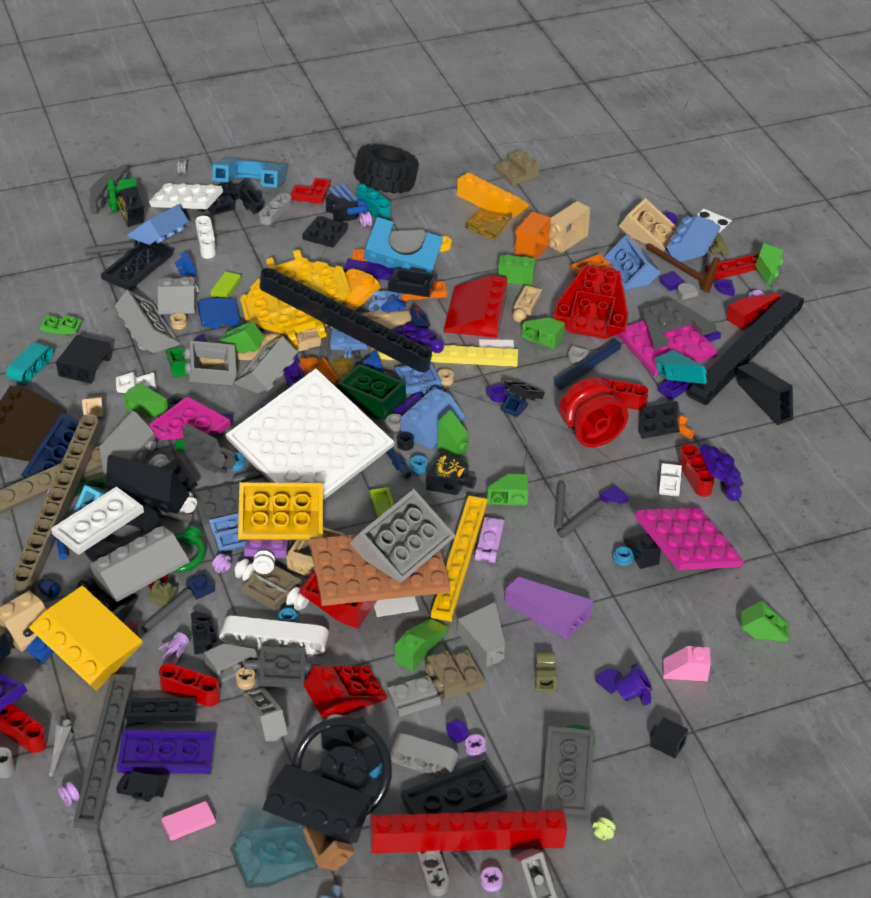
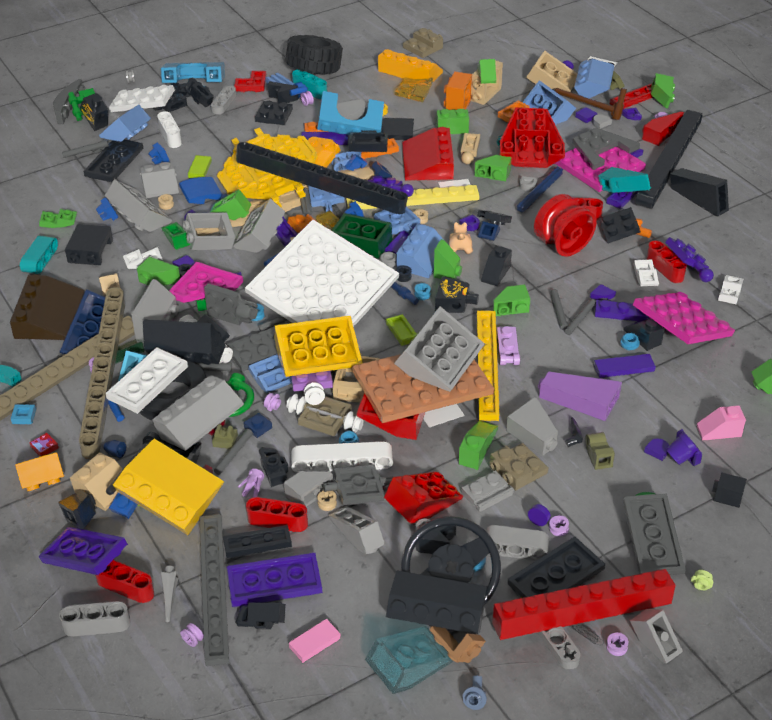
camera: 10 degrees left, 0 degrees up
(114, 322) = (107, 209): none -> blue tile
(179, 391) = (184, 260): none -> dark purple tile
(455, 269) = (398, 128): none -> black tile
(478, 411) = (461, 239): none -> light nougat animal
(507, 447) = (497, 265): none -> black slope
(529, 650) = (577, 439): none -> black bar
(566, 217) = (487, 71): none -> bright green slope
(608, 582) = (624, 365): none -> dark purple tile
(620, 518) = (618, 310): none -> dark purple plate
(758, 513) = (731, 289): none -> white slope

